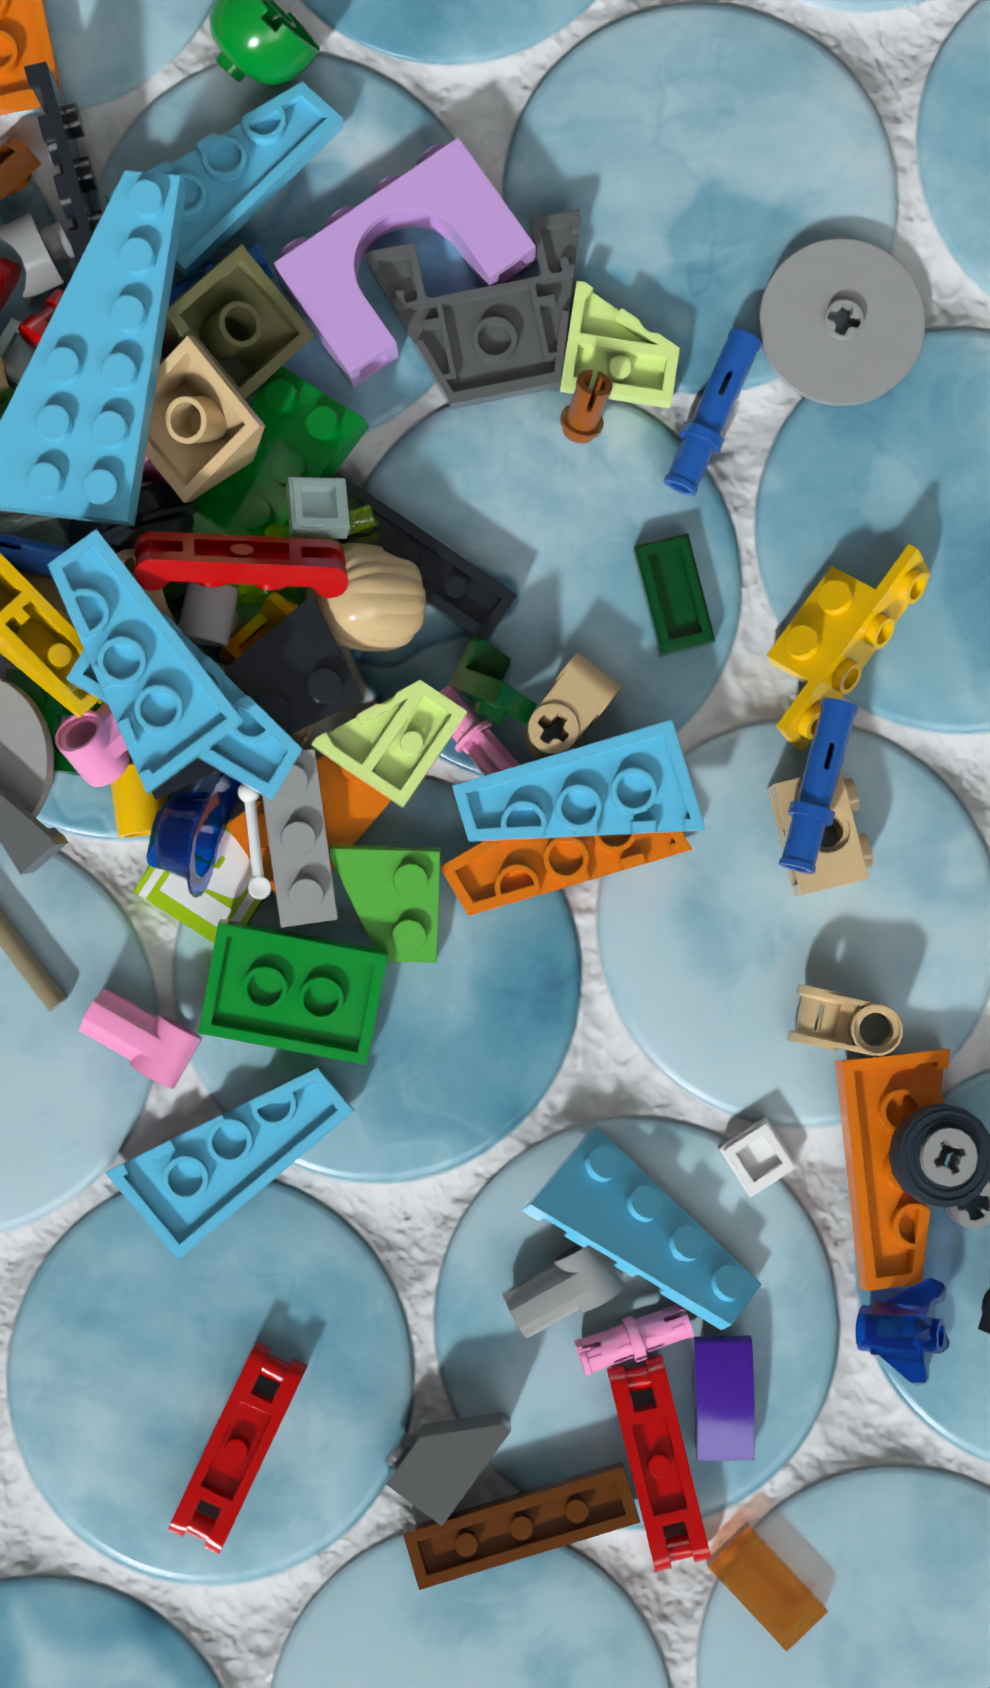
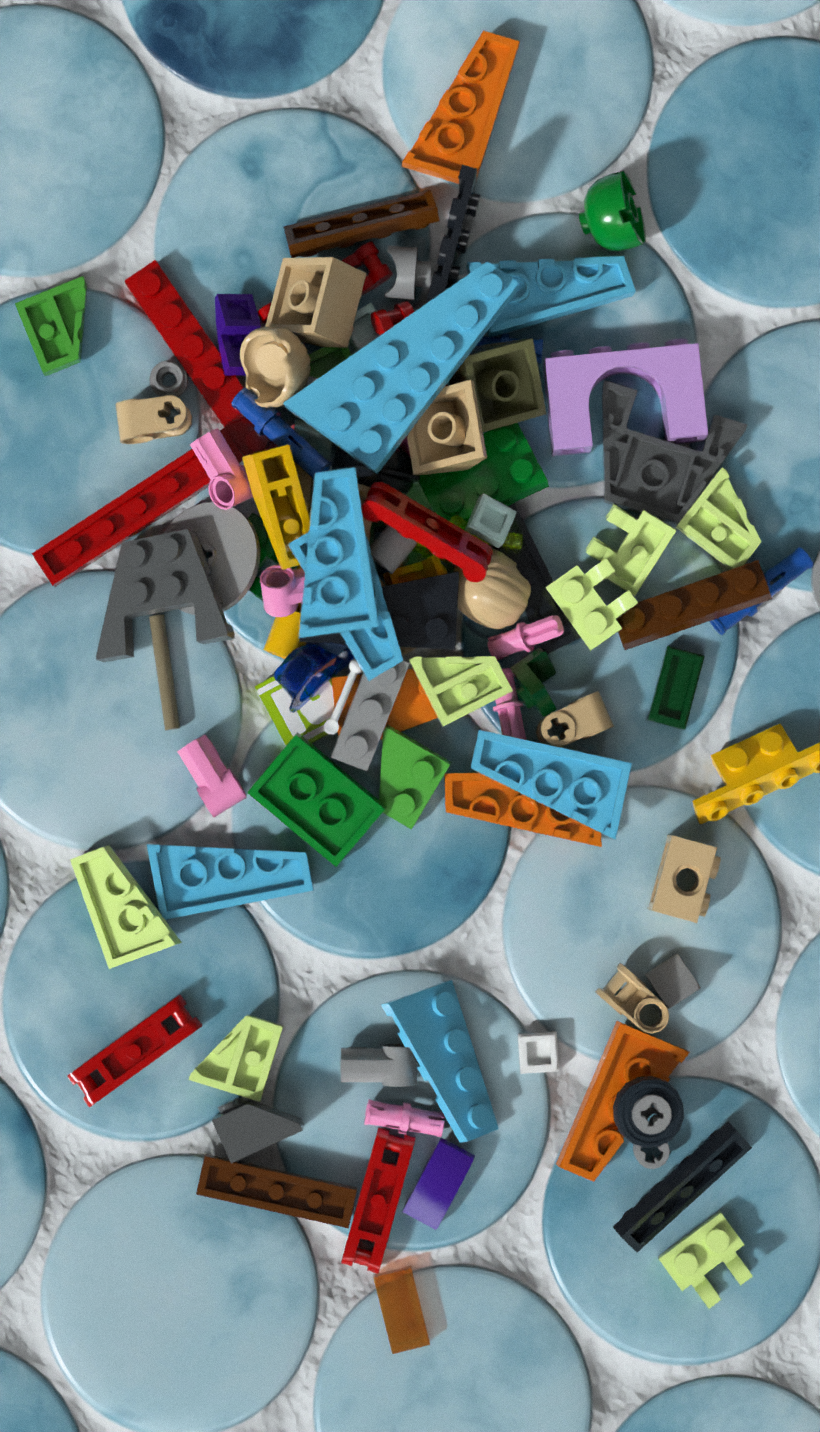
camera: 35 degrees right, 0 degrees up
(116, 1275) = (120, 909): none -> yellowish green wing
(382, 1380) = (241, 1059): none -> yellowish green wing
(446, 634) = (525, 637): none -> bright pink axle
(500, 553) = (585, 608): none -> yellowish green plate
(529, 446) = (638, 551): none -> yellowish green plate
(582, 418) = (680, 550): dark orange pin -> none
(636, 476) = (693, 604): none -> reddish brown plate
(812, 809) = (696, 851): blue pin -> none
(878, 970) = (672, 981): none -> light grey slope
(905, 1330) = (569, 1203): clear blue rock -> none

